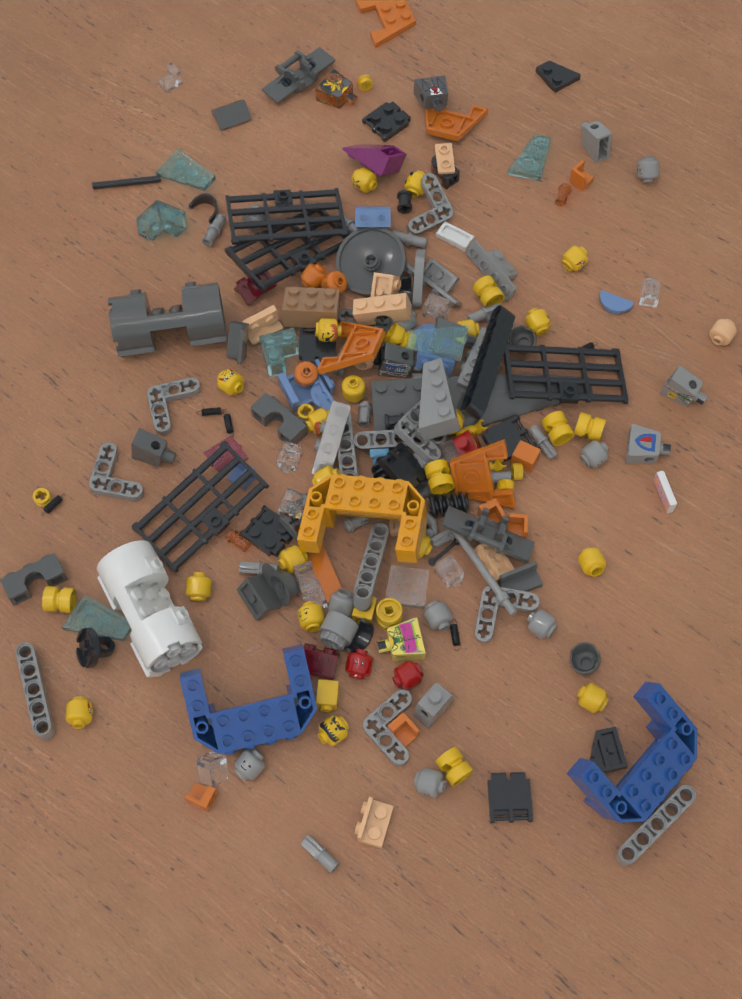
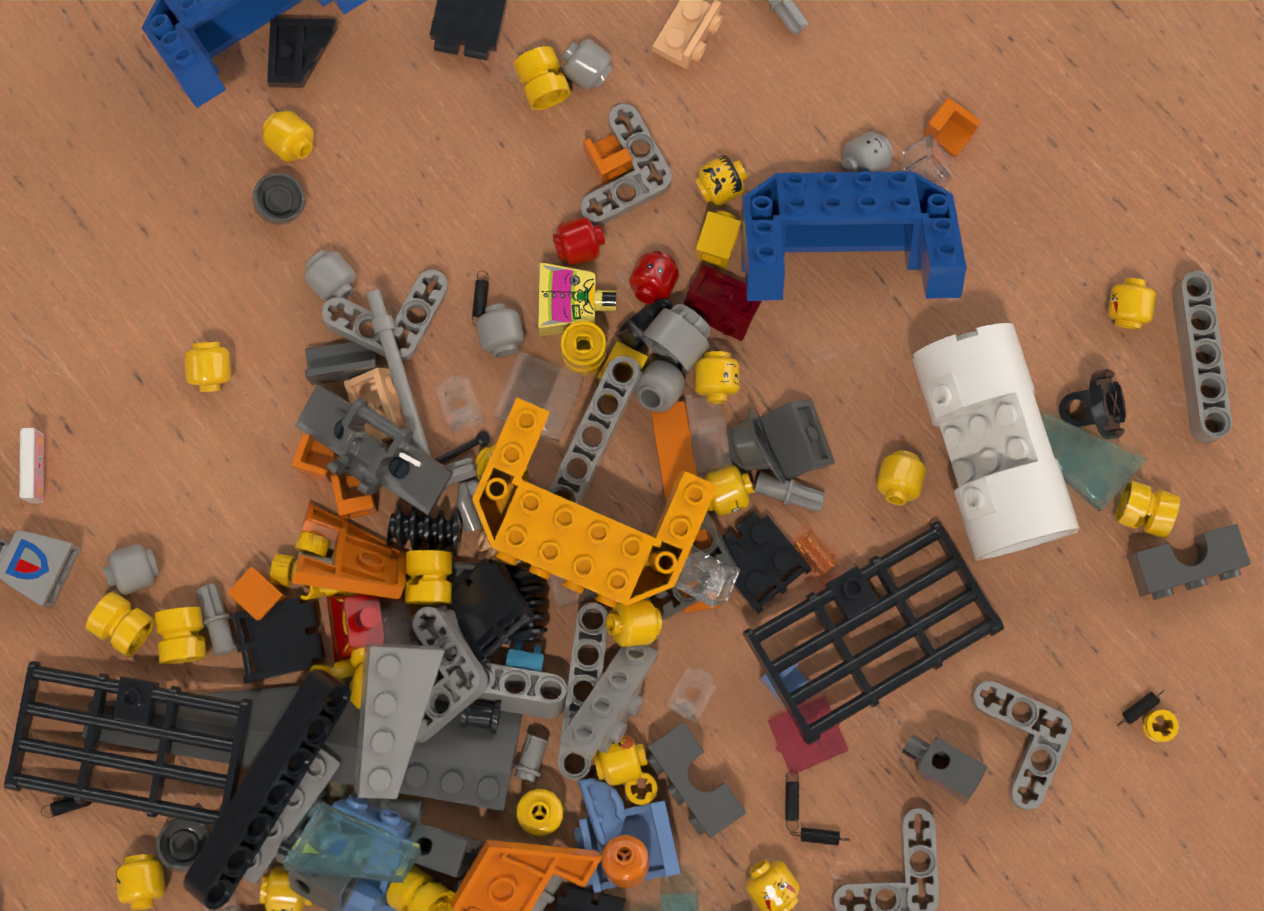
camera: 170 degrees left, 15 degrees up
(434, 704) = (547, 180): light grey torso -> none

